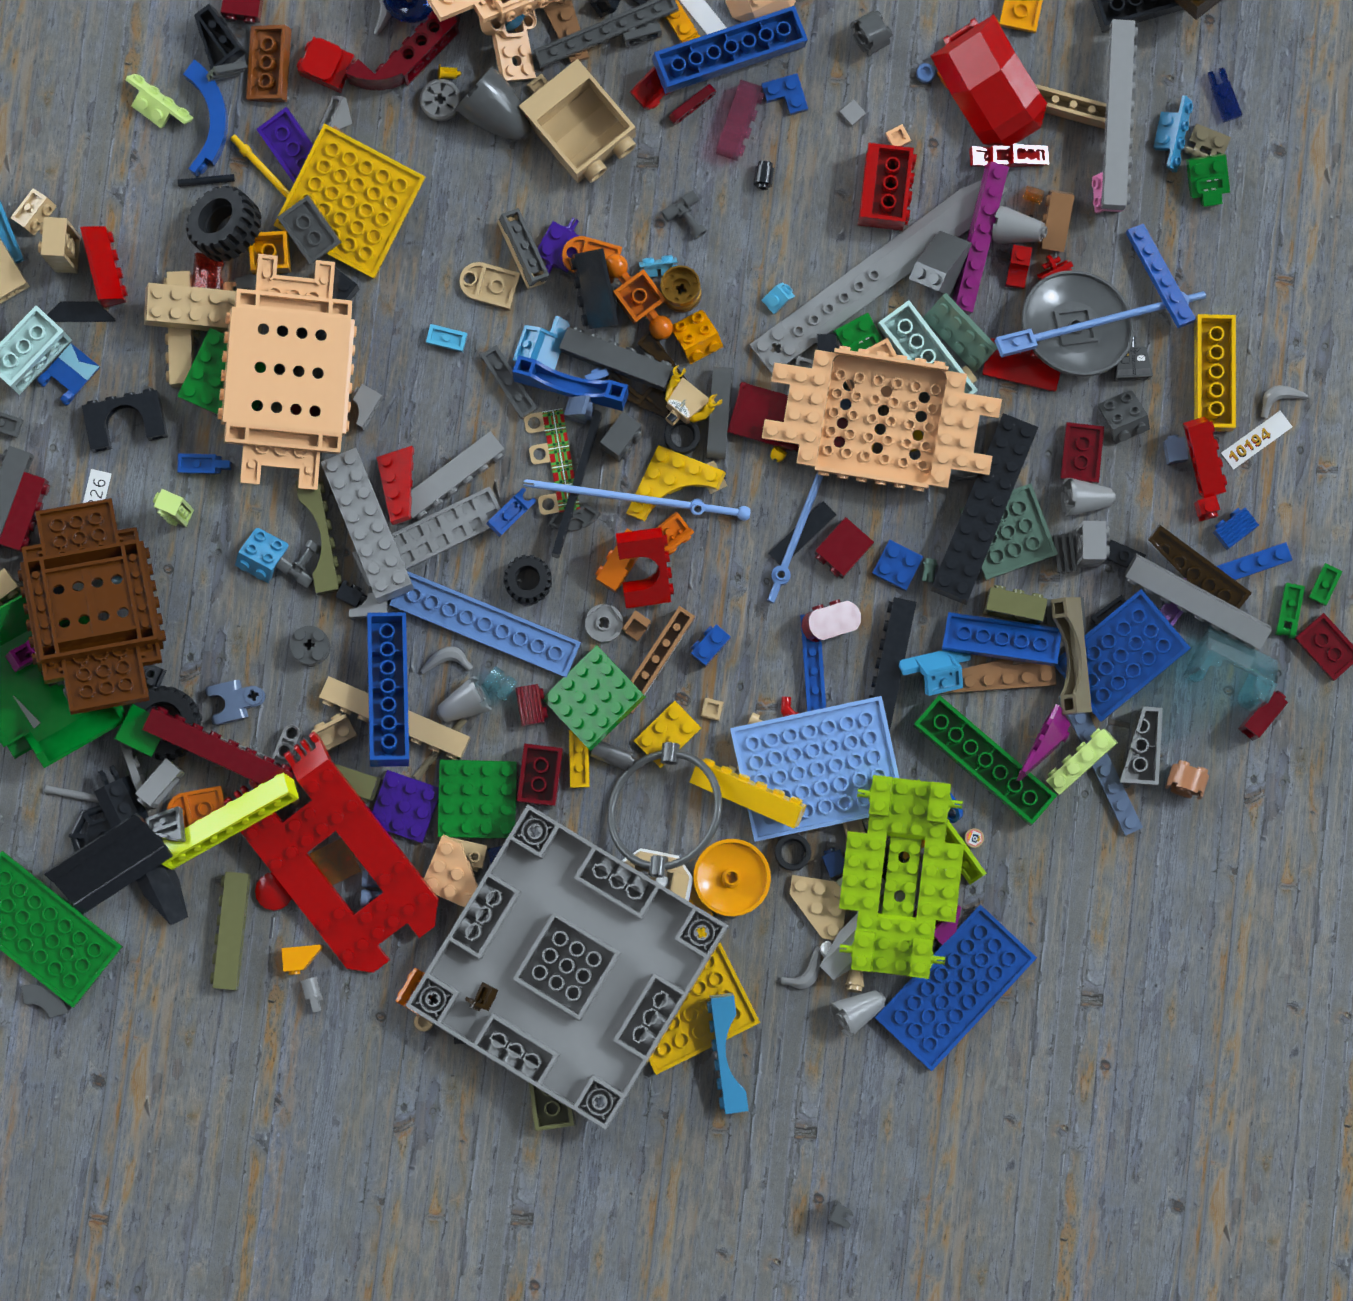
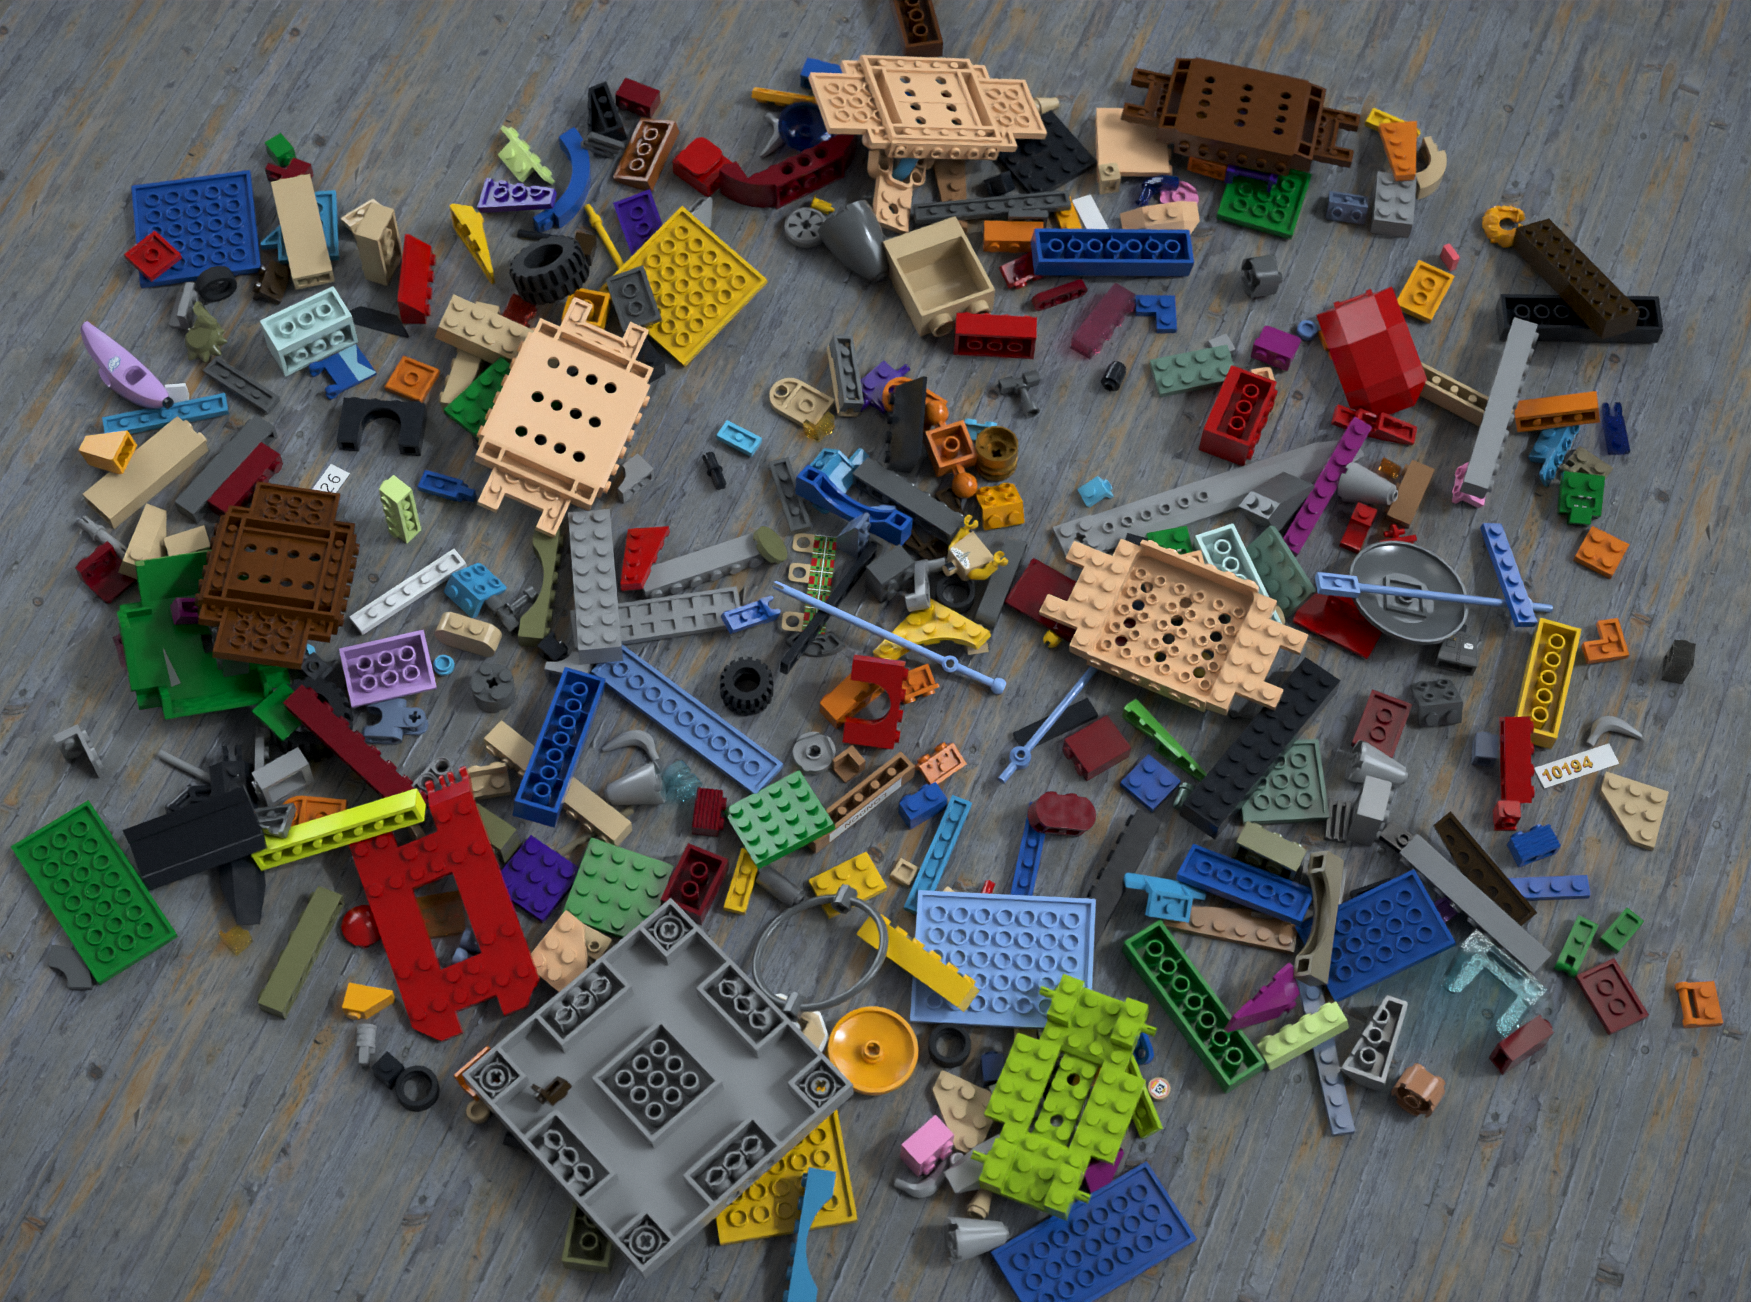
camera: 15 degrees right, 20 degrees down
(133, 193) = (471, 232): none -> yellow wedge
(134, 364) = (412, 379): none -> orange tile
(162, 150) = (509, 197): none -> dark purple wing
(172, 935) = (236, 939): none -> clear yellow panel
(204, 575) = (407, 592): none -> white plate
(215, 658) = (387, 668): none -> lavender slope
(245, 182) = (588, 244): none -> dark brown brick
(259, 635) = (443, 665): none -> medium azure plate
(272, 602) = (468, 634): none -> tan brick
(340, 1011) = (387, 1069): none -> black brick
(382, 1022) = (409, 1073): none -> black tyre
(435, 377) = (714, 470): none -> black axle
(507, 438) = (770, 545): none -> olive tile
(519, 305) = (821, 429): none -> clear yellow bracket
(631, 55) = (1008, 236): none -> orange brick
(646, 167) = (995, 335): none -> red brick
(654, 453) = (921, 597): none -> light grey beam
(714, 601) = (941, 763): none -> orange bracket
(736, 682) = (939, 850): none -> dark azure plate
(799, 947) = (927, 1146): none -> bright pink brick
(833, 147) = (1191, 370): none -> sand green plate
(882, 514) = (1166, 745): none -> bright green wedge
(902, 101) = (1275, 347): none -> magenta bracket
(1170, 99) = (1557, 411): none -> orange brick
(1237, 225) = (1601, 552): none -> orange plate
(1263, 318) = (1610, 646): none -> orange plate
(1315, 466) = (1635, 807): none -> tan plate
(1325, 319) = (1678, 661): none -> clear smoke brick

